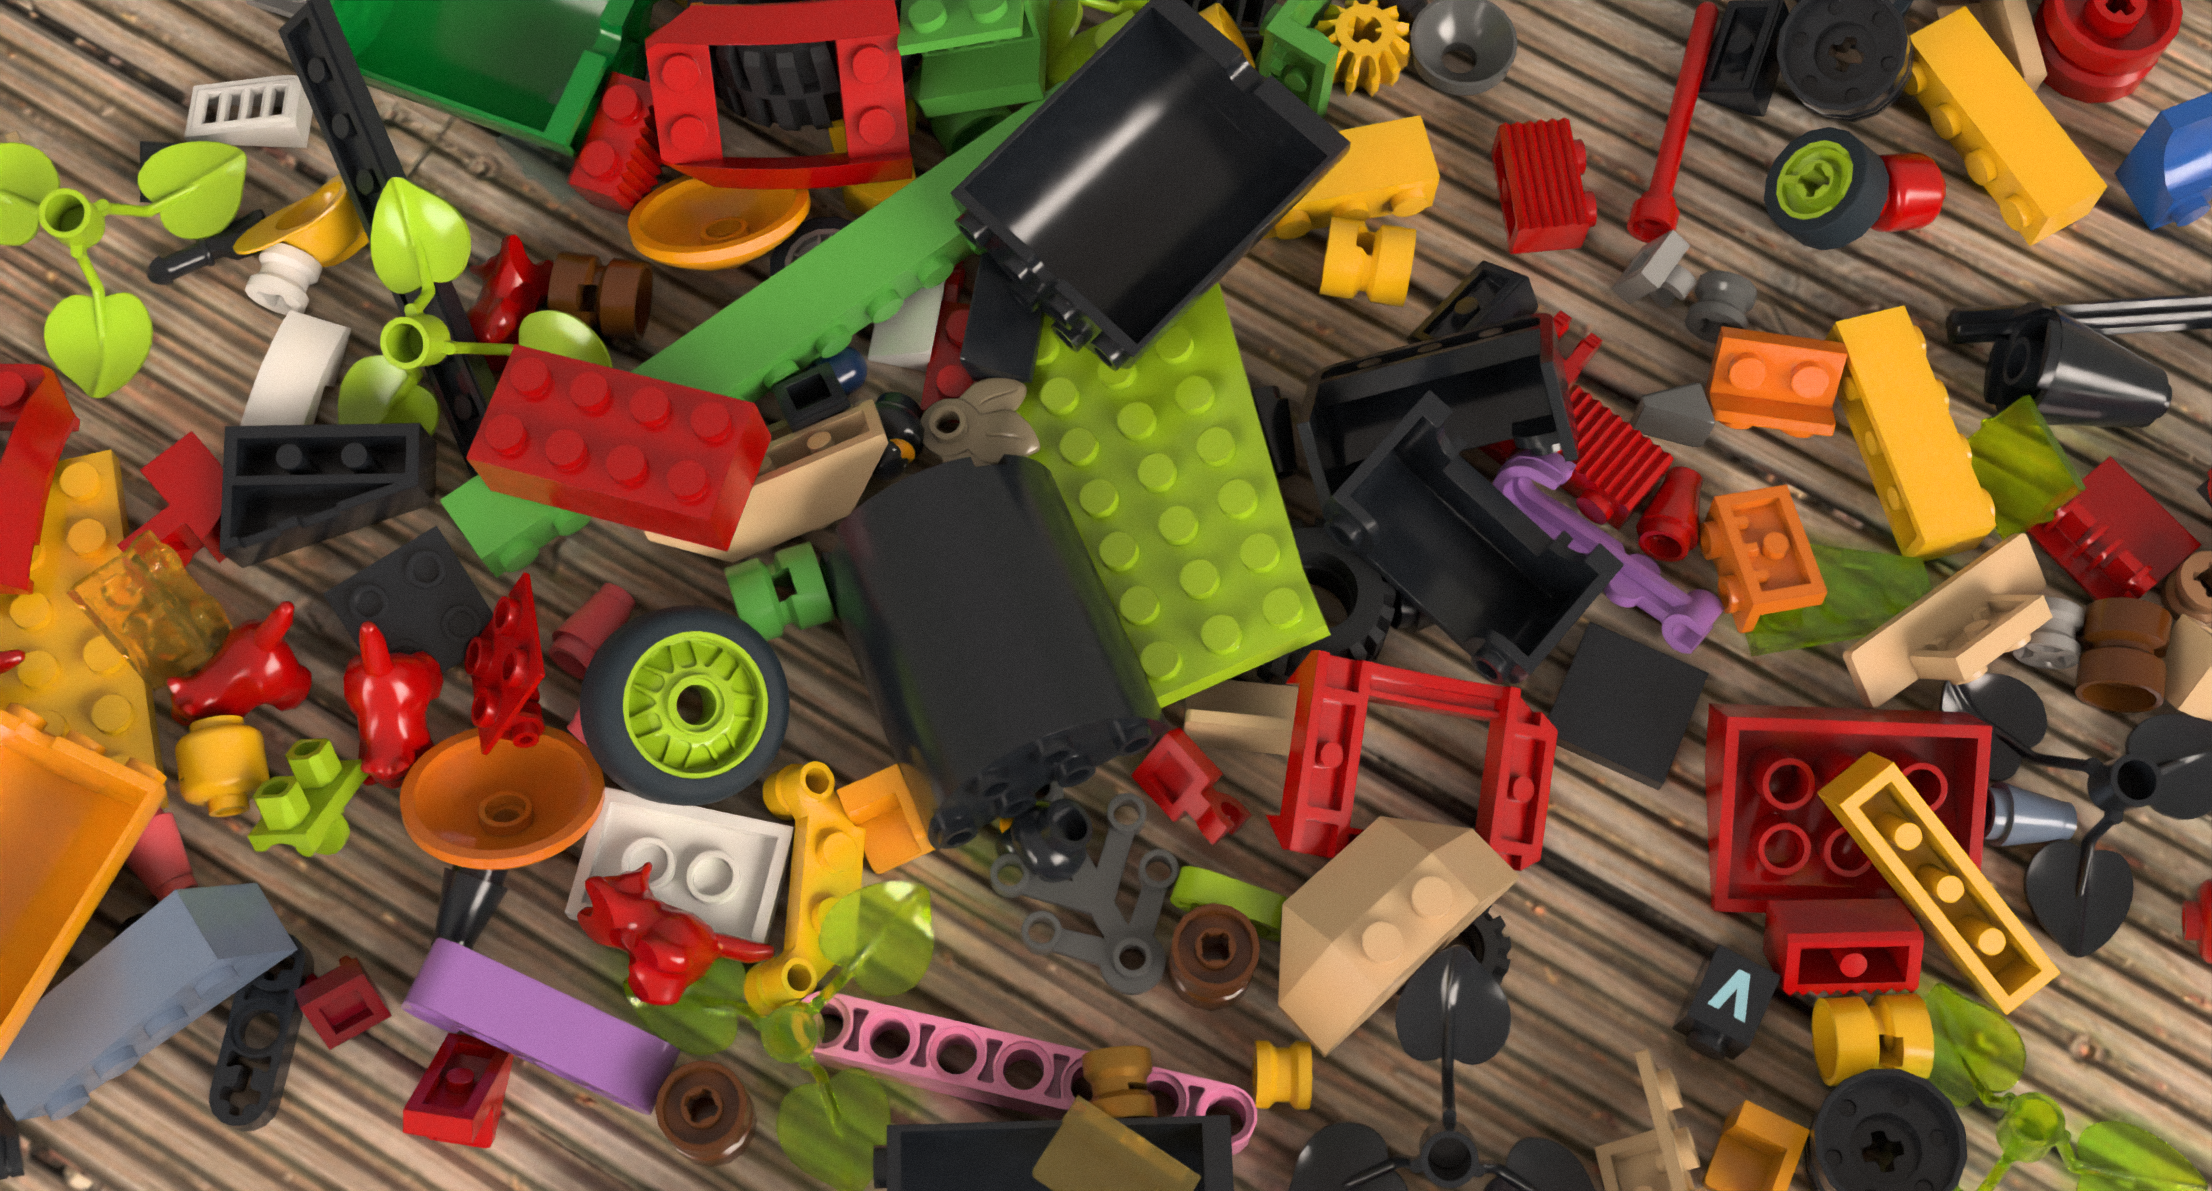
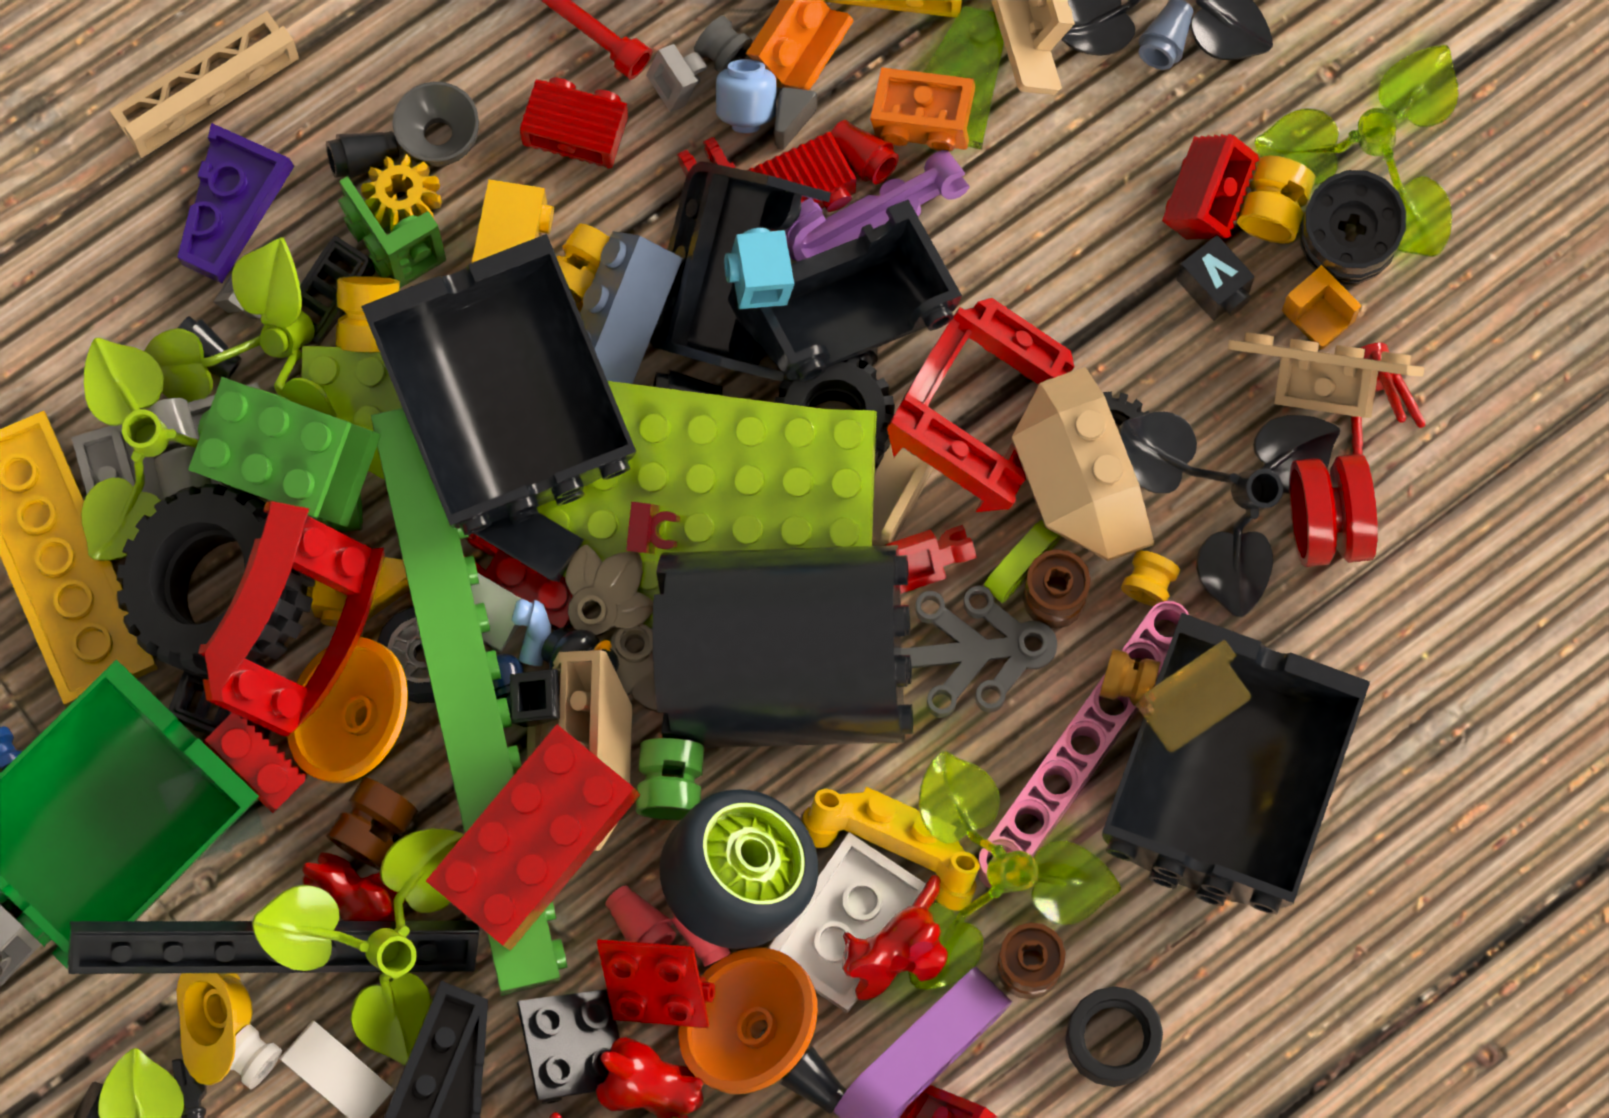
camera: 65 degrees left, 5 degrees up
(268, 130) = (74, 1017): white slope -> none
(890, 819) = (870, 765): light orange panel -> none
(909, 371) = (538, 629): none -> light blue arm
(1047, 838) = (933, 662): black animal -> none
(1064, 431) = (644, 528): none -> dark red tile
(1329, 311) = (627, 302): none -> sand blue brick
(1432, 405) = (760, 268): none -> medium azure brick
(1481, 299) = (647, 204): black slope -> none
(1625, 705) = (987, 246): black tile -> none
(1670, 350) = (746, 95): none -> light blue head
(1775, 832) = (1115, 140): red slope -> none
(1938, 882) = (1197, 108): yellow brick -> none

